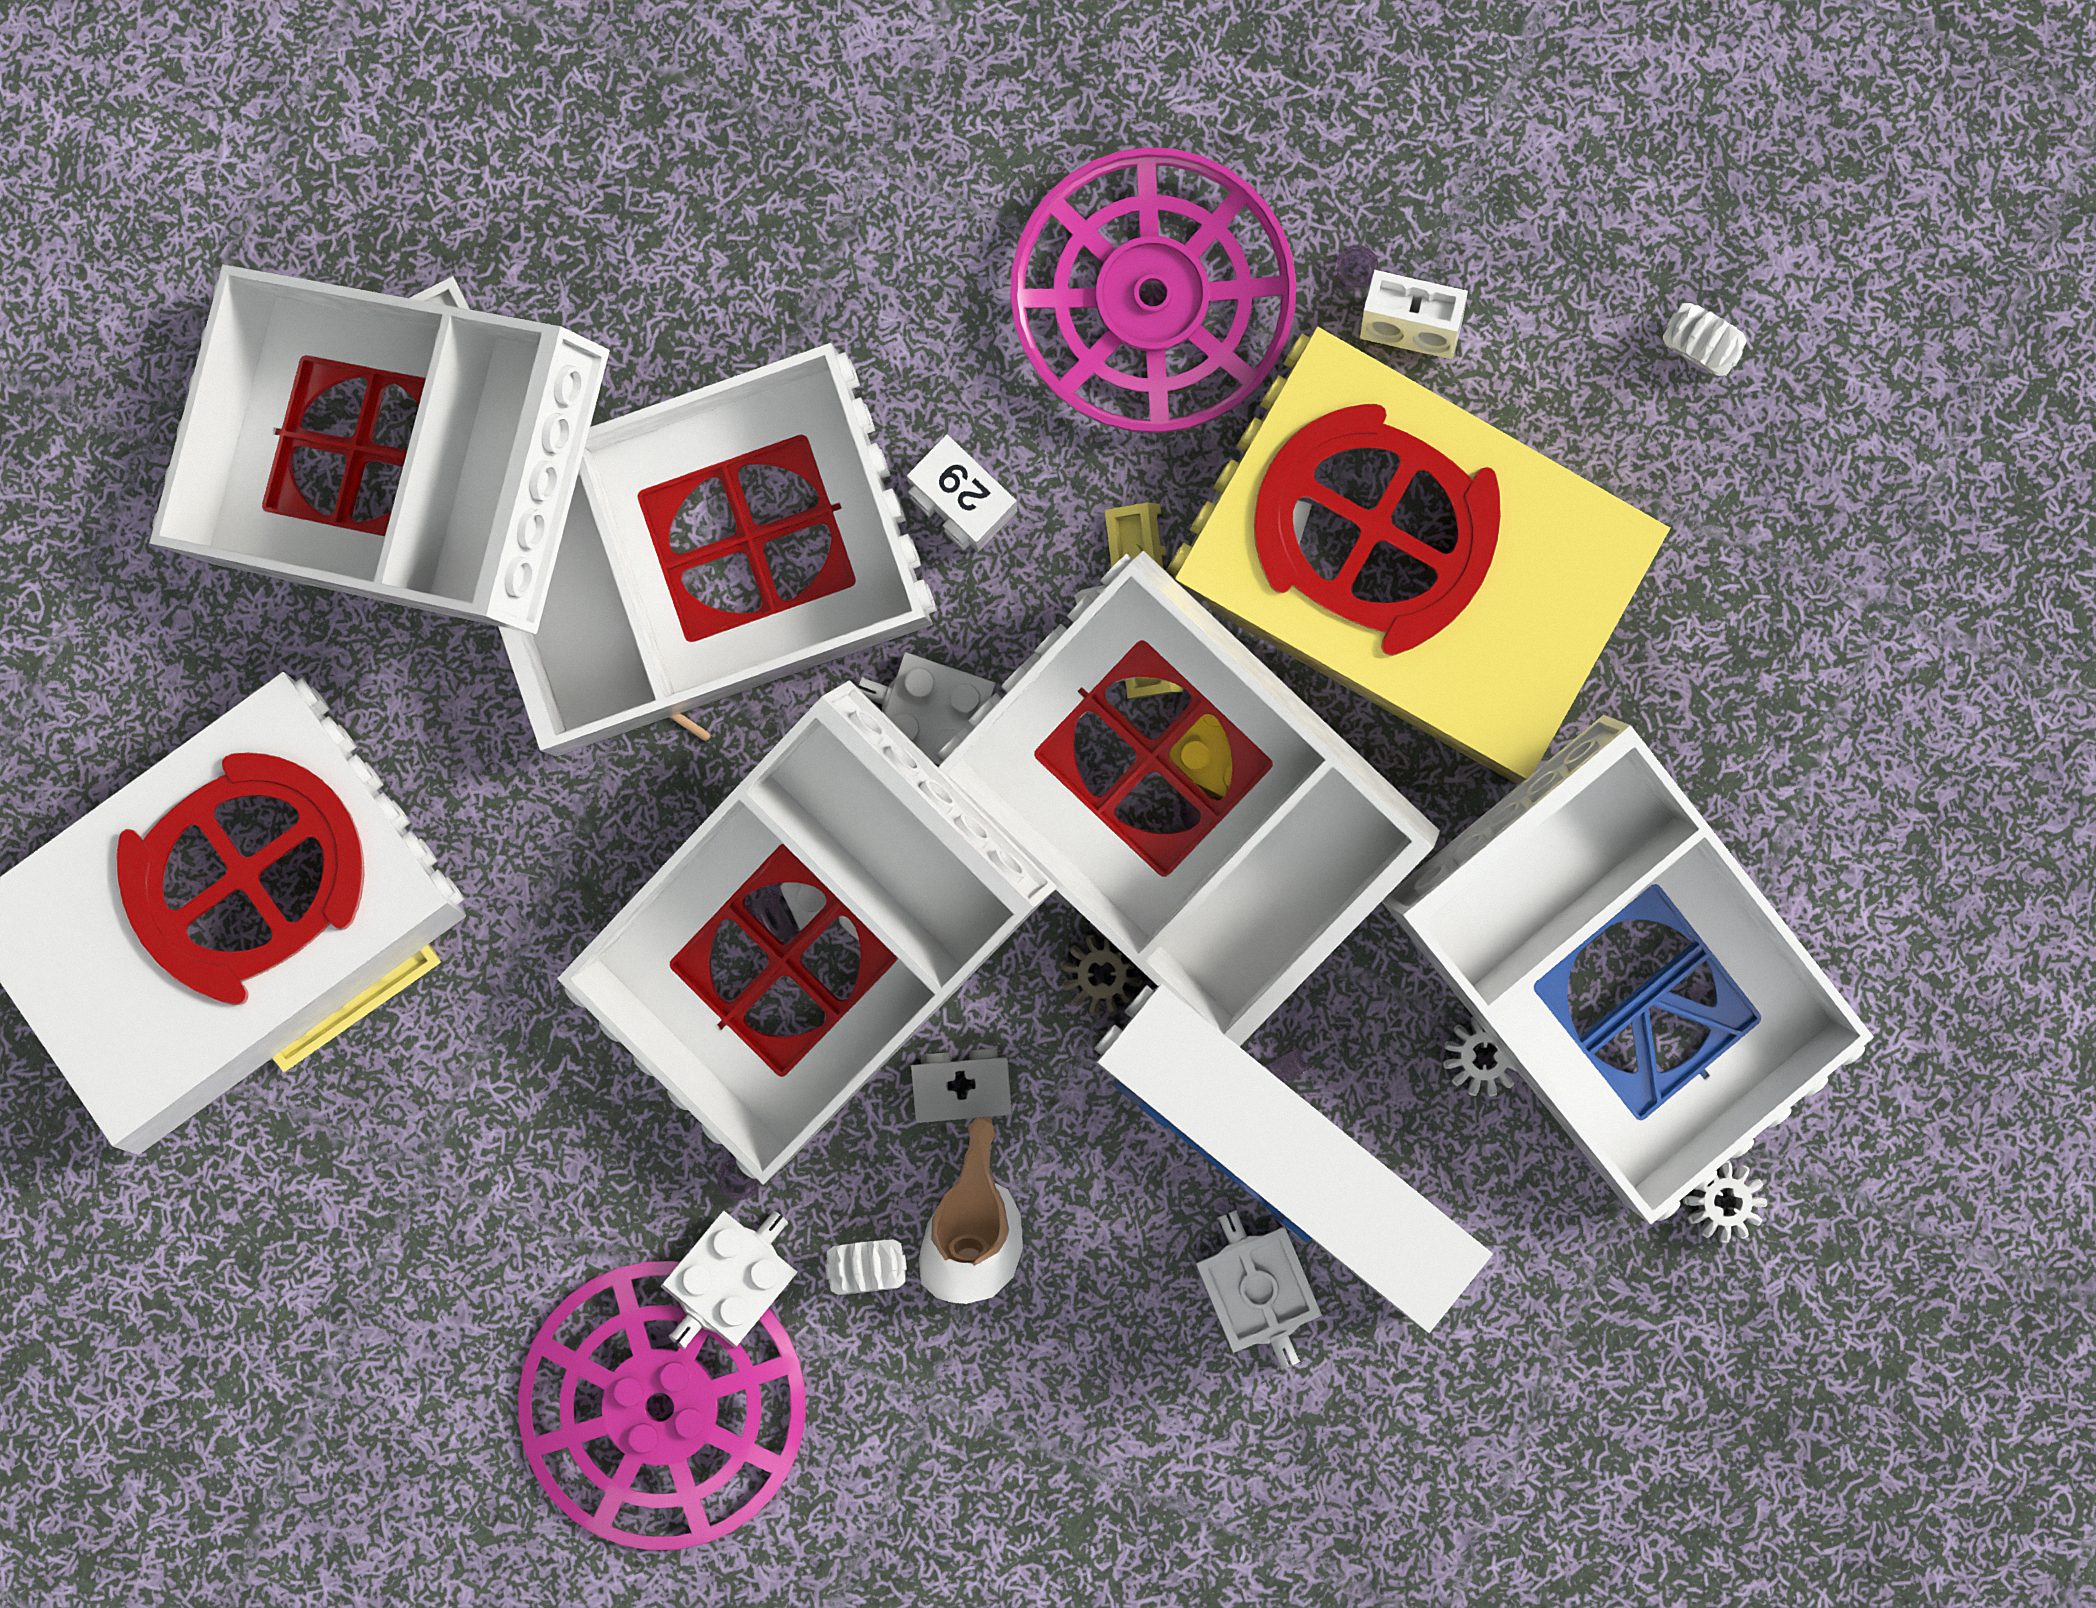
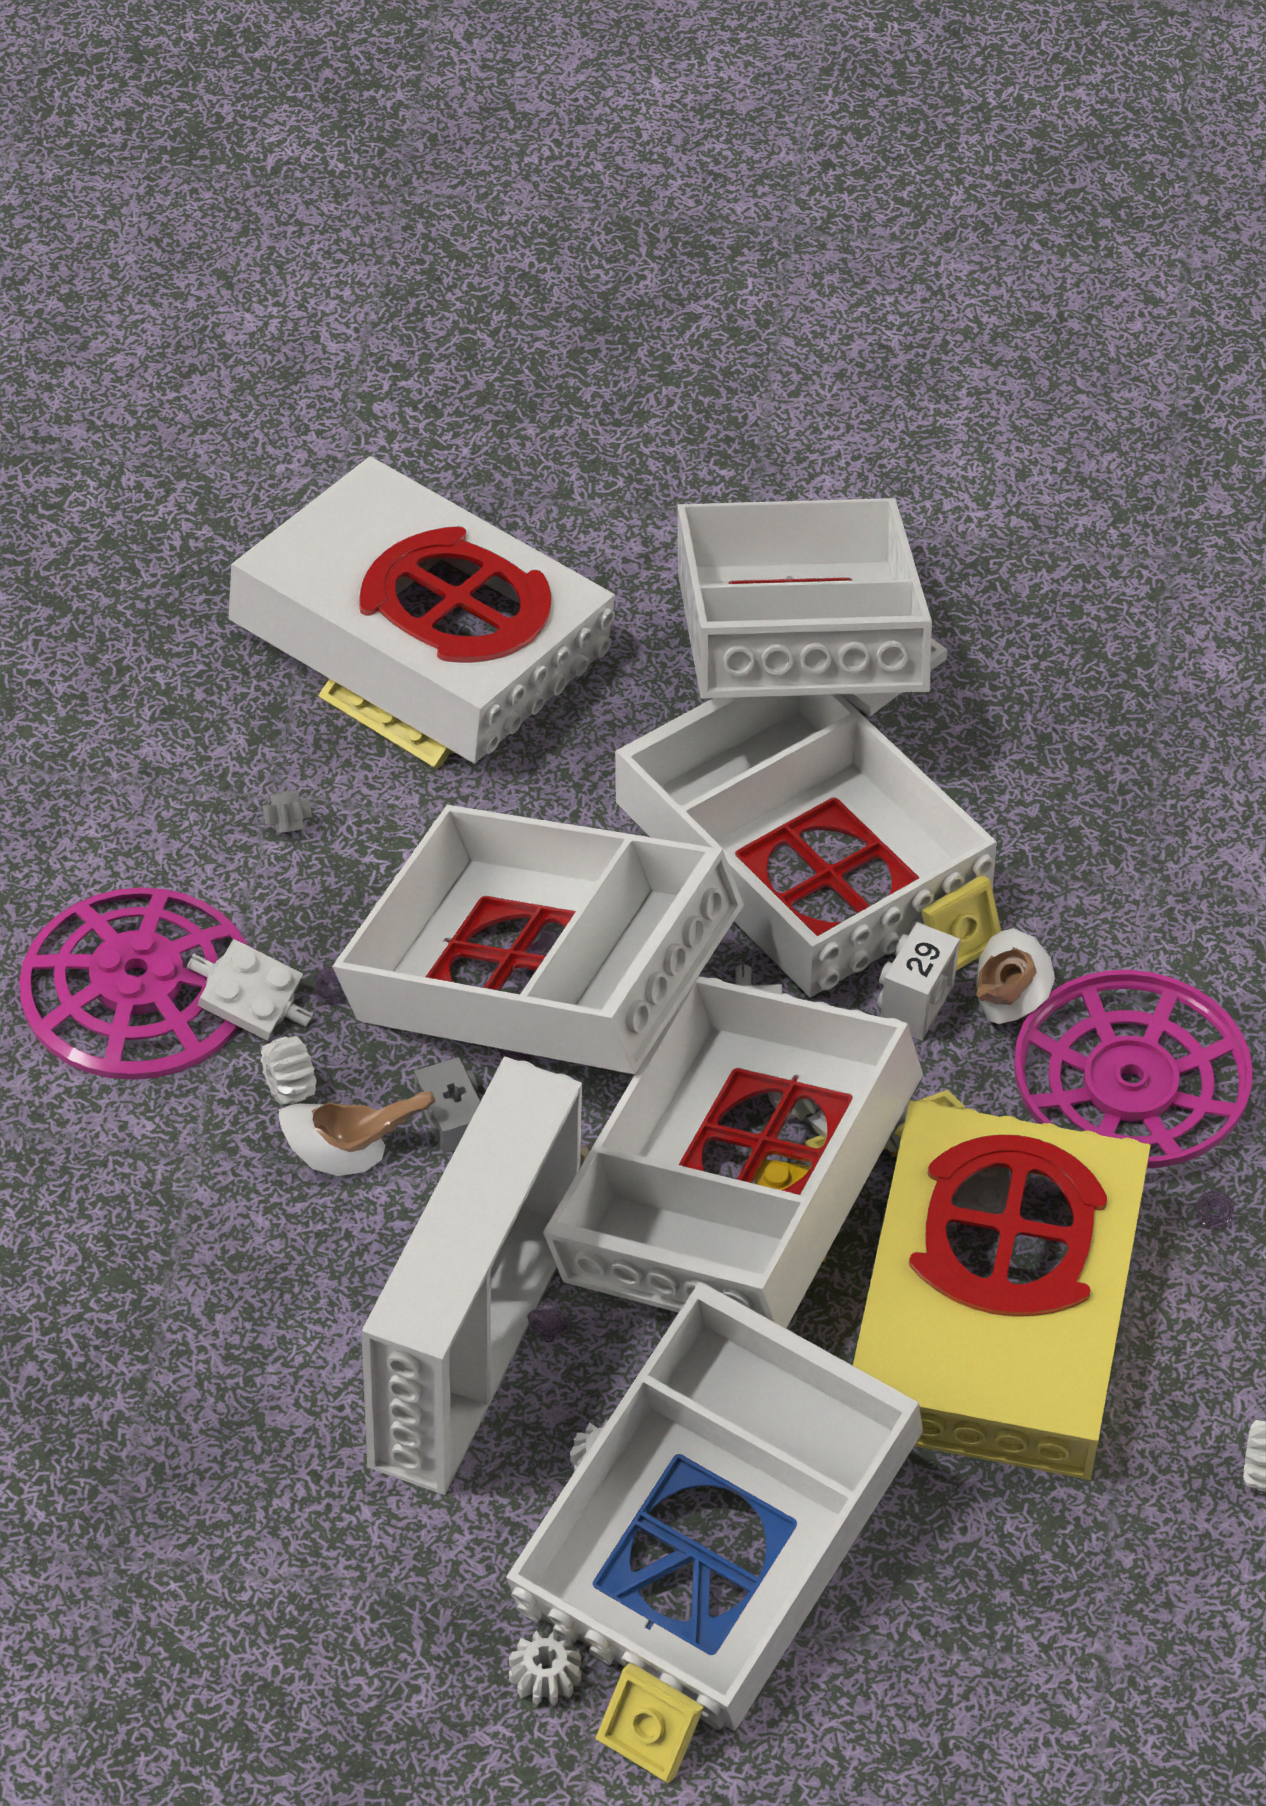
camera: 70 degrees right, 35 degrees down
(467, 1163) = (287, 811): none -> light grey gear
(895, 413) = (967, 915): none -> light yellow tile
(1007, 372) = (1013, 976): none -> hat
(1258, 1289) = (337, 1350): white plate -> none
(1413, 314) = (1193, 1246): white brick -> none
(1835, 1115) = (649, 1722): none -> light yellow tile

